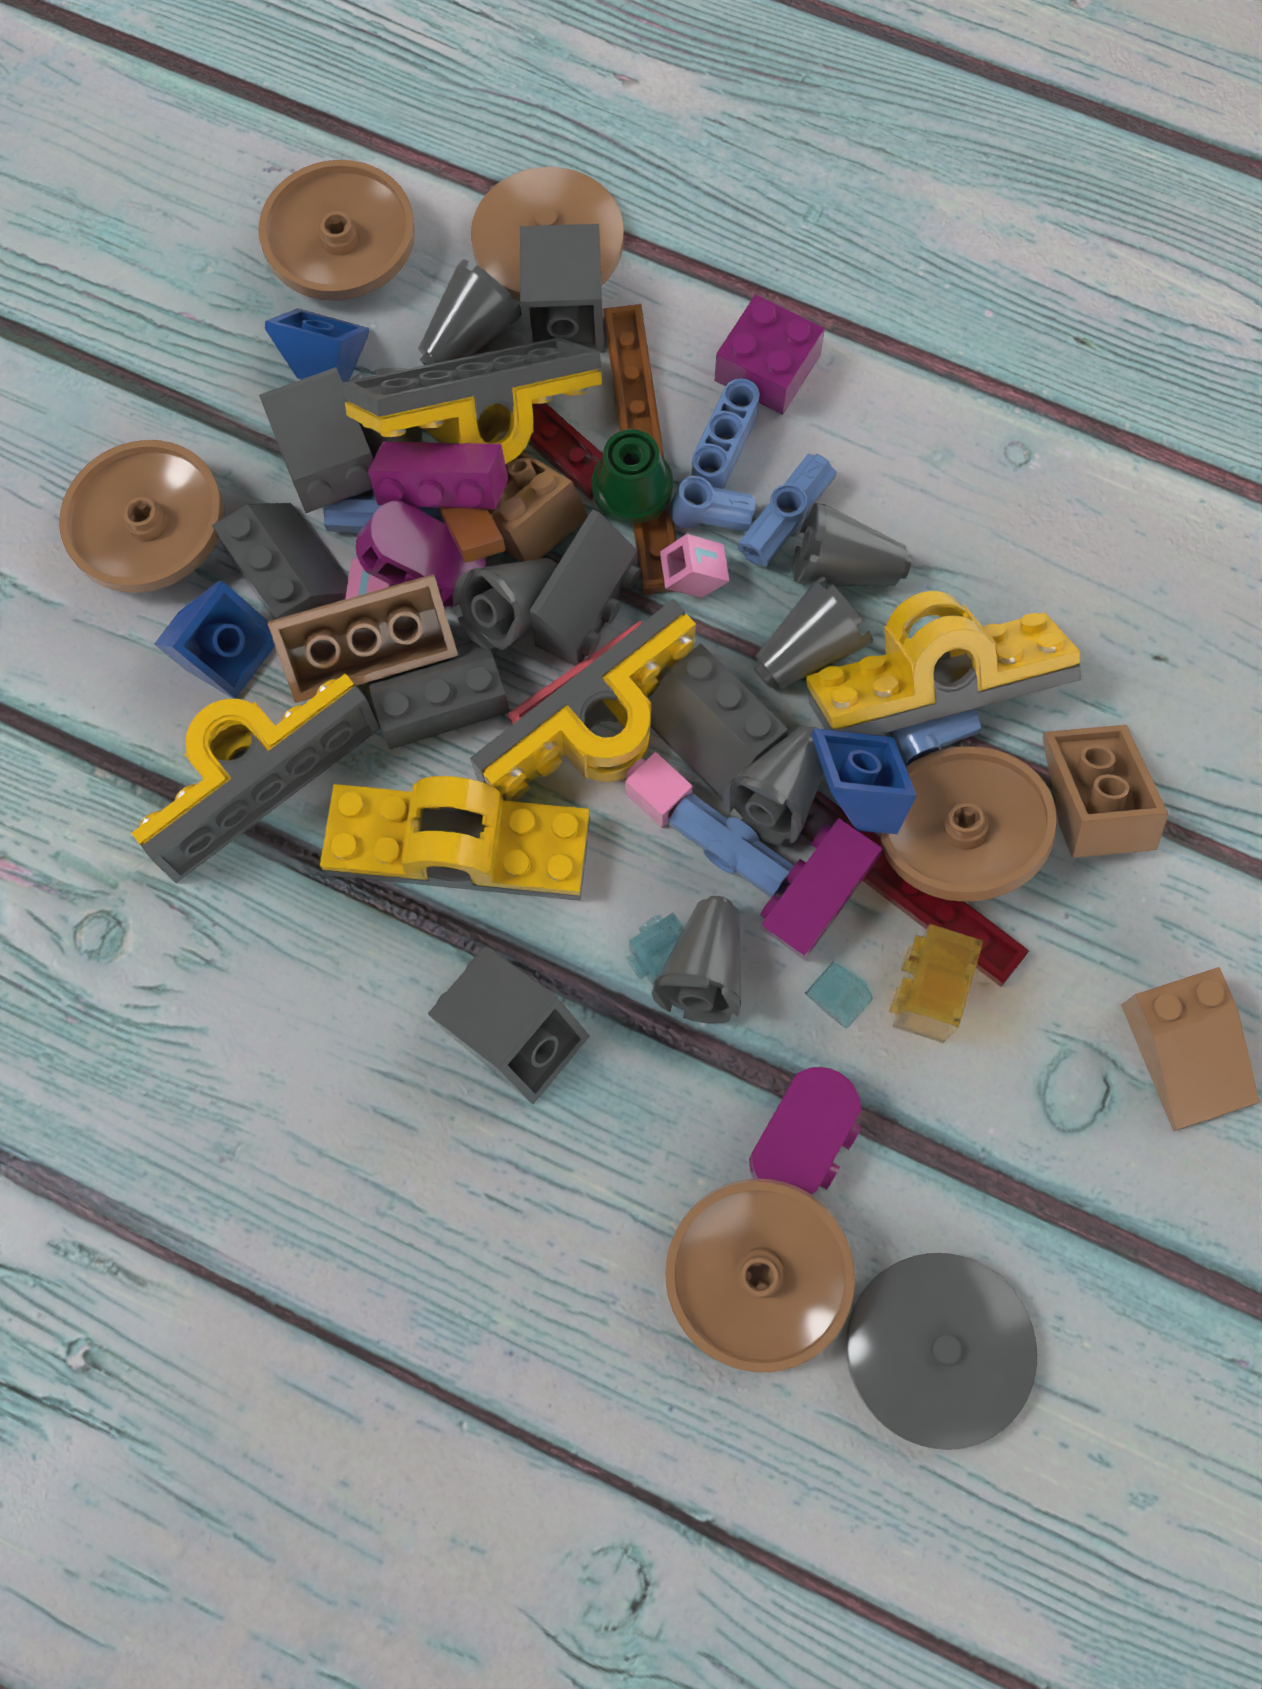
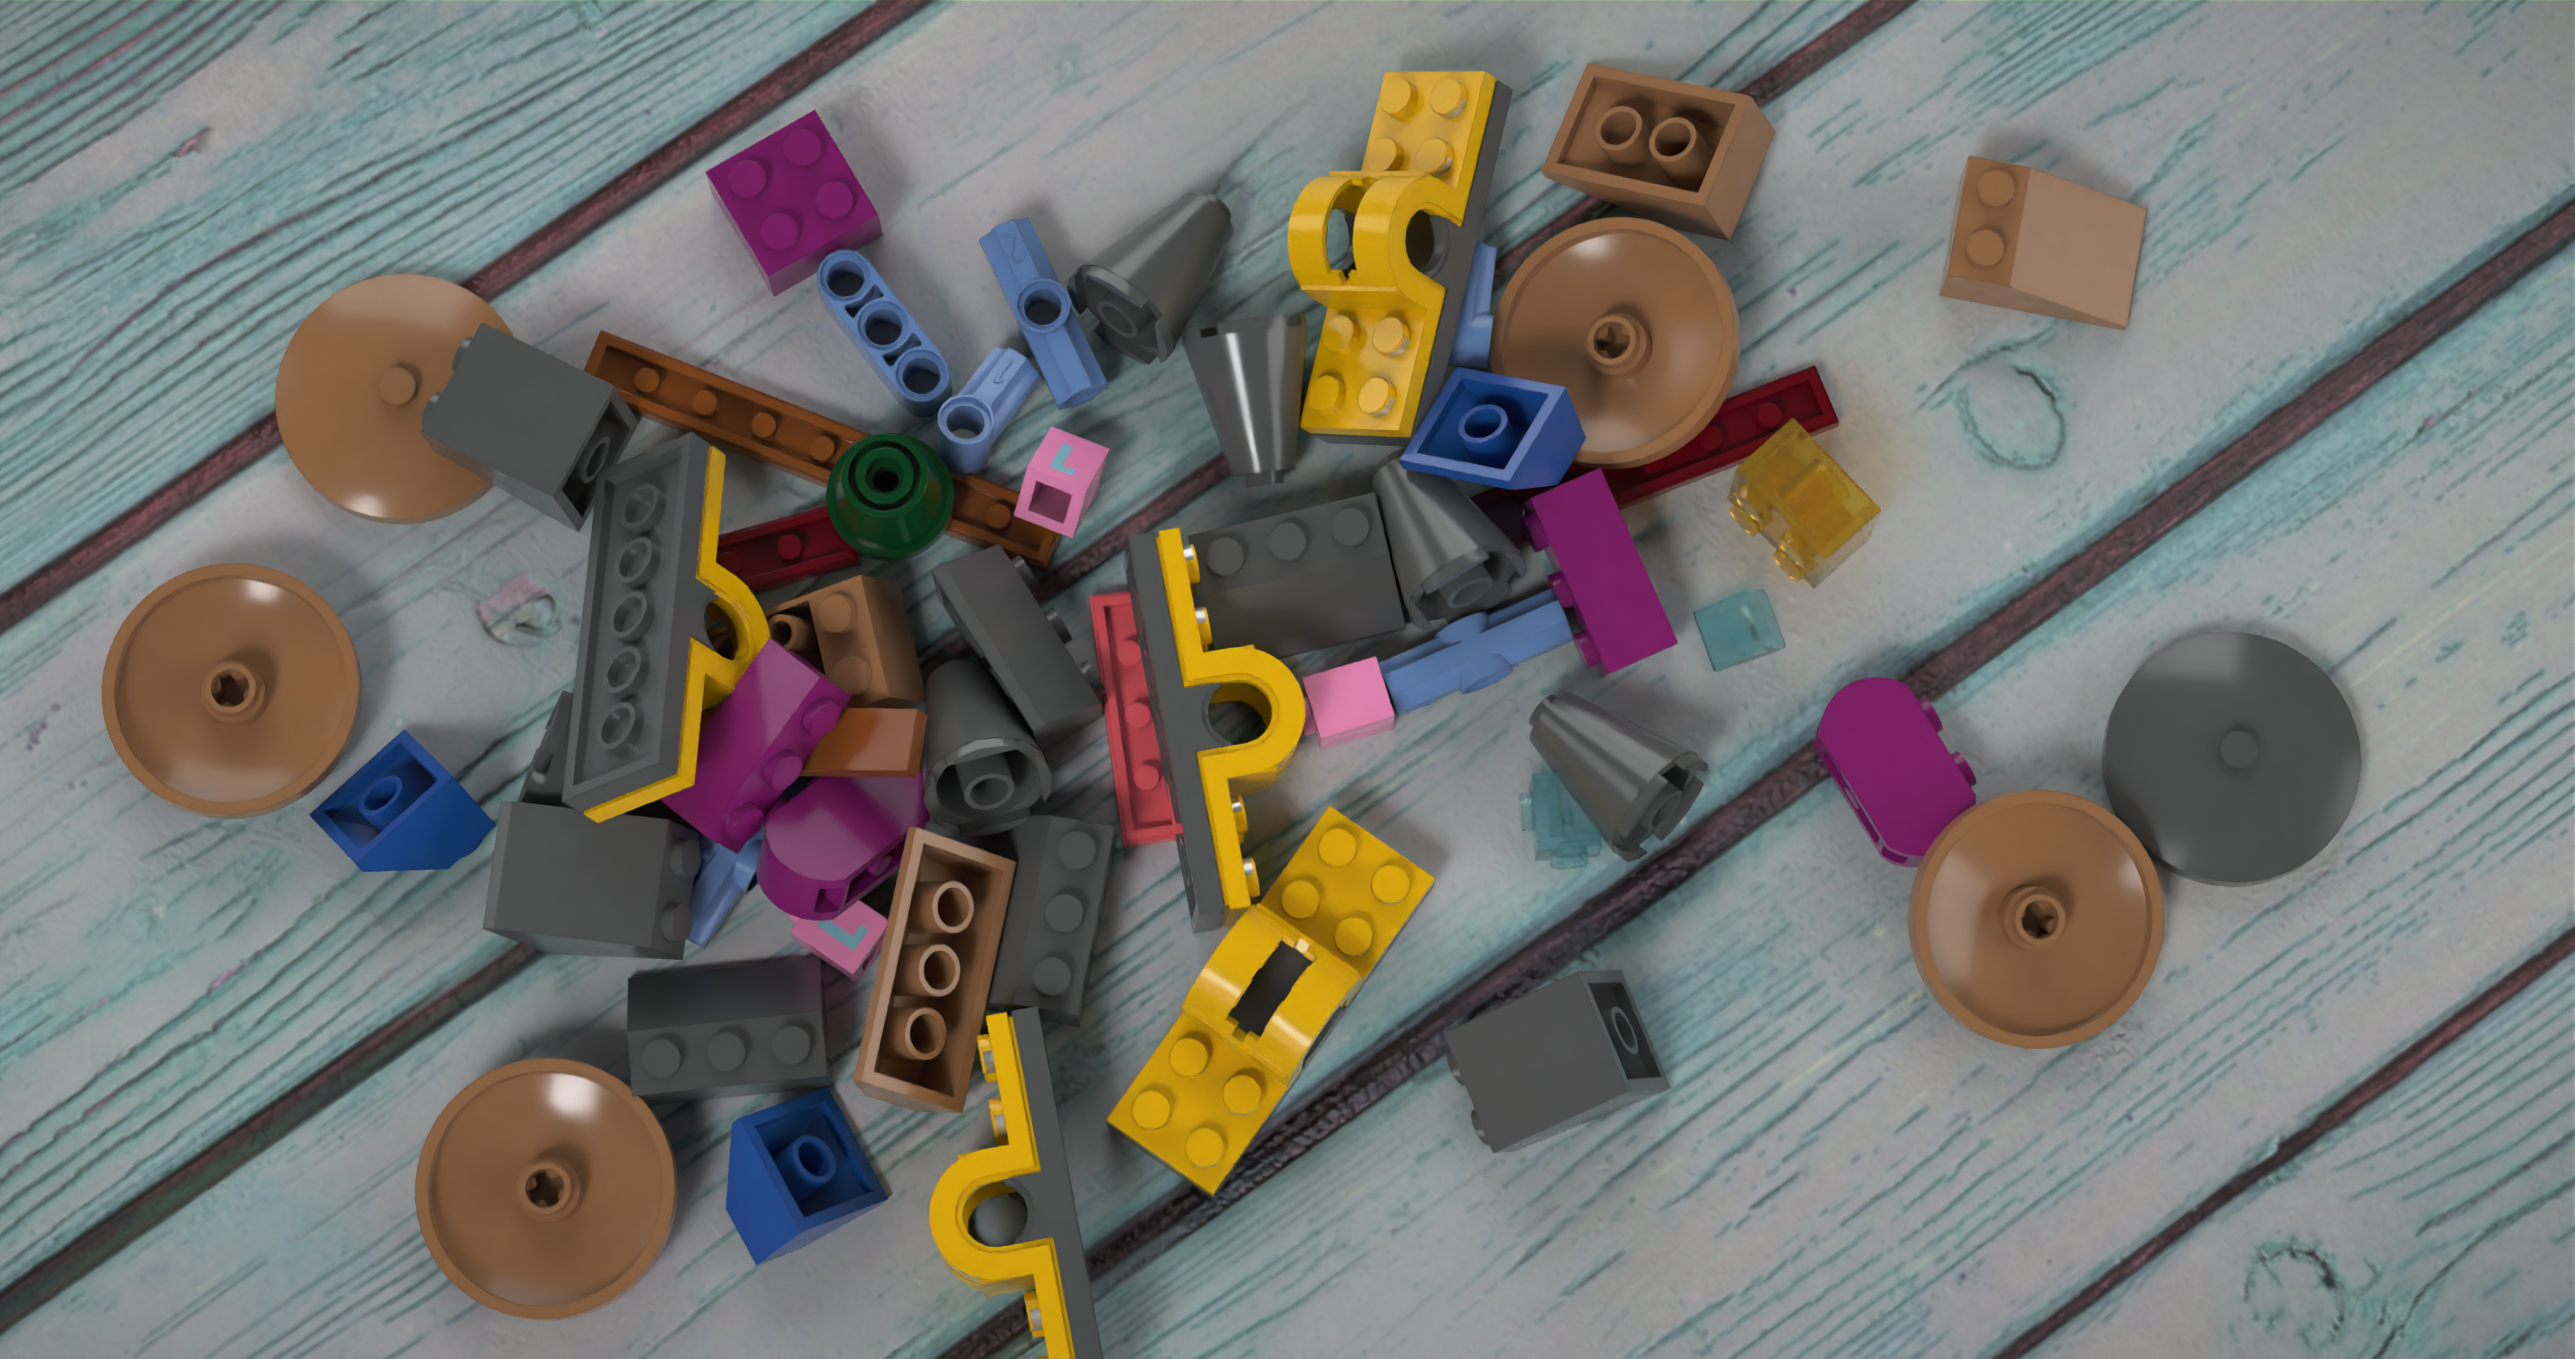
camera: 65 degrees left, 5 degrees up
(468, 316) = (495, 587): dark grey cone -> none

